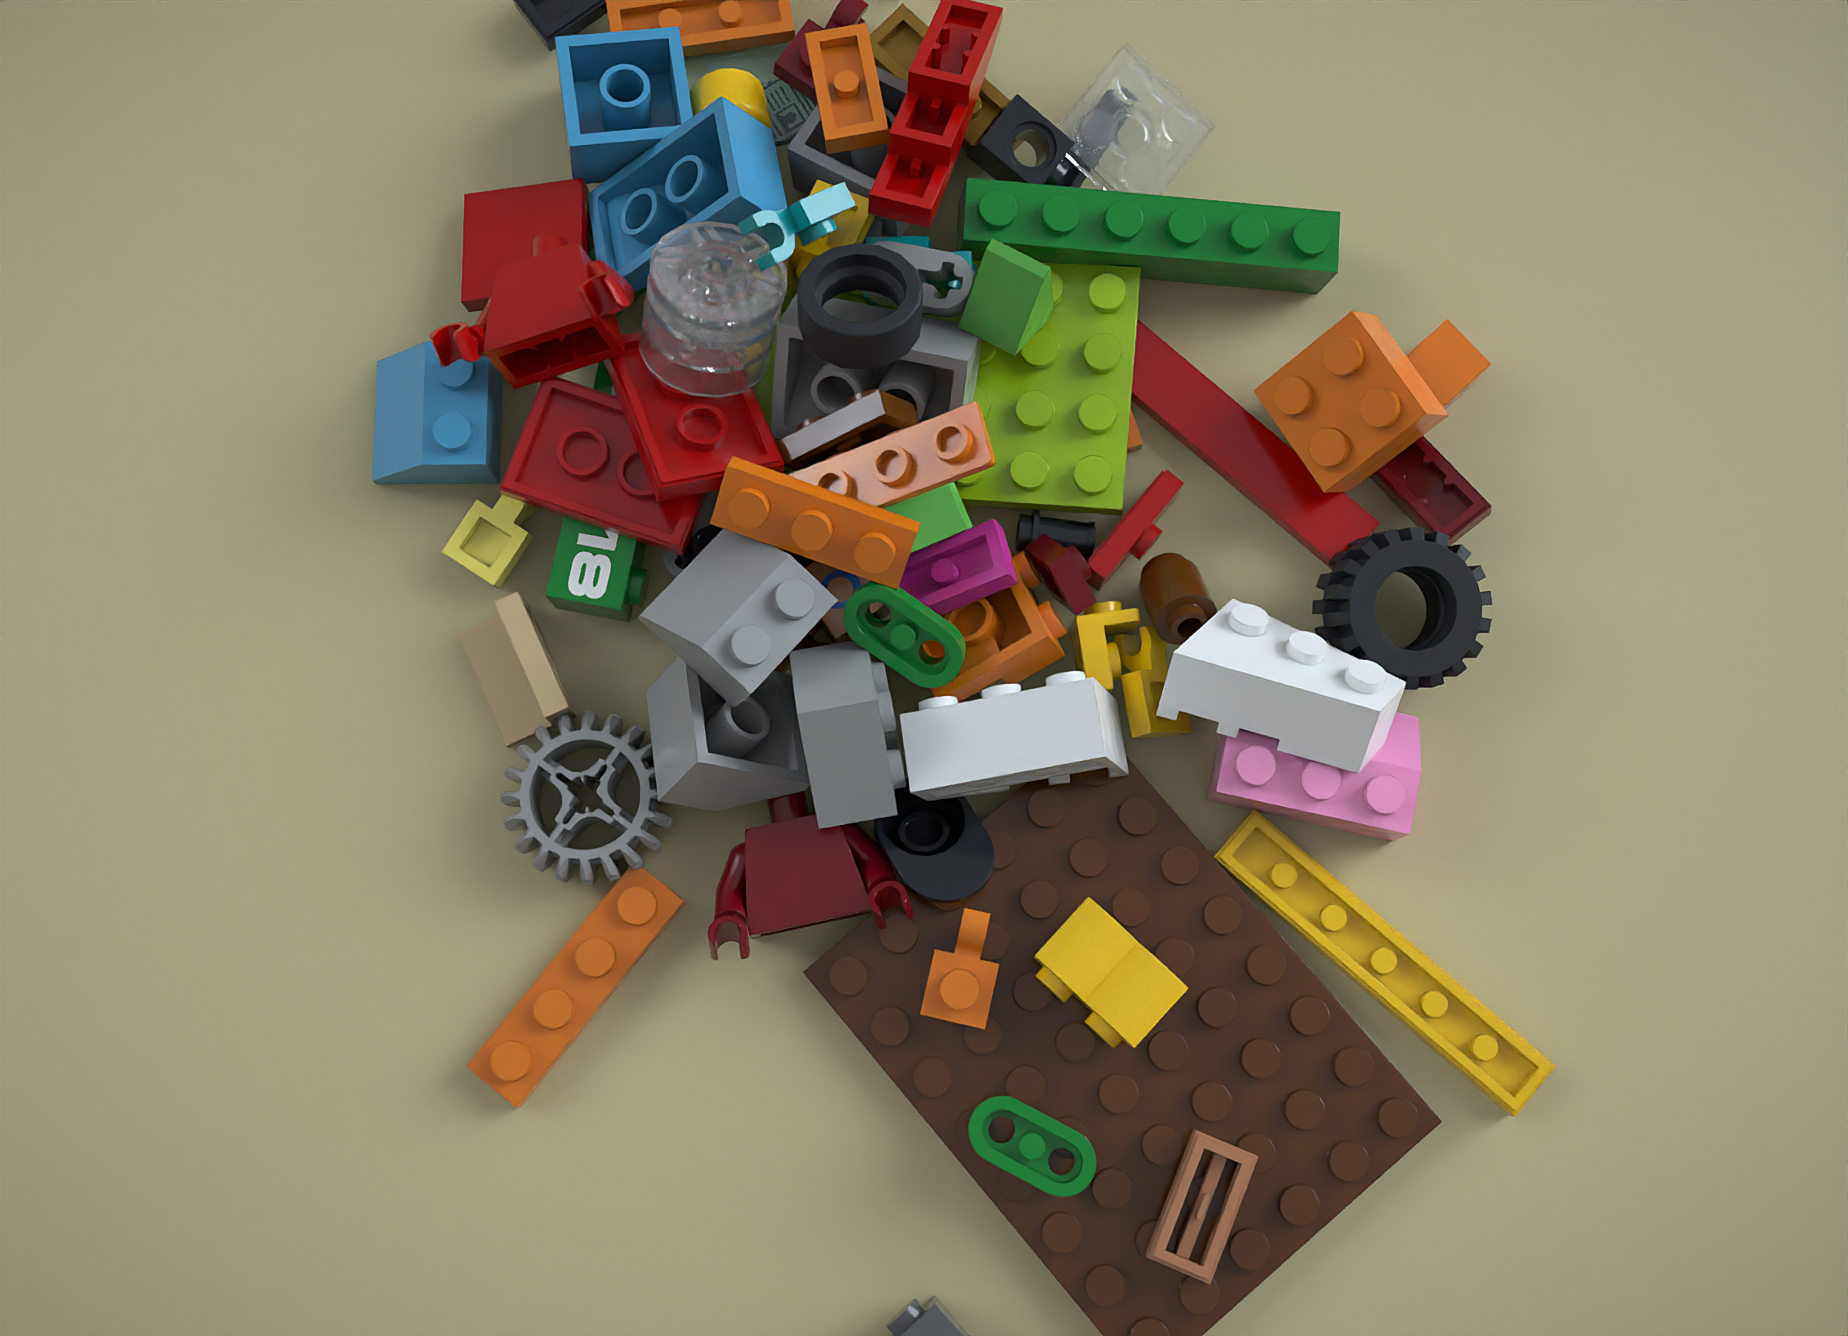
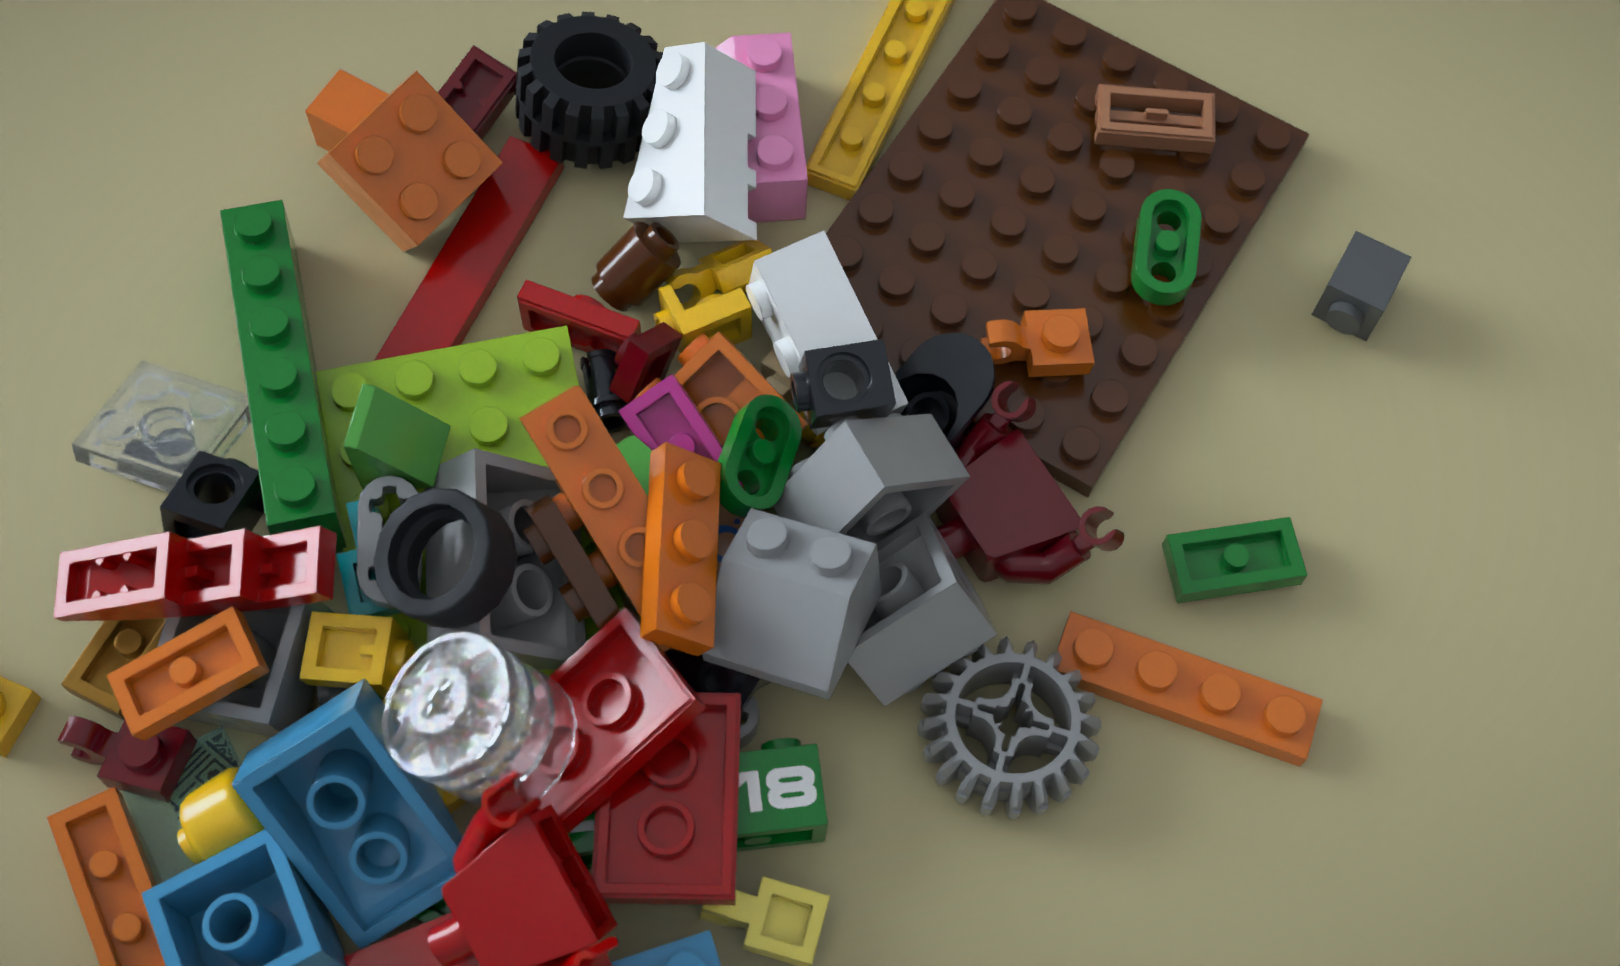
camera: 110 degrees left, 15 degrees down
(516, 671) = (906, 848): tan panel -> none
(681, 1083) = (1234, 559): none -> green plate
(807, 218) = (362, 651): teal plate -> none
(950, 743) = (867, 367): none -> black brick
(1109, 975) = (997, 224): yellow brick -> none

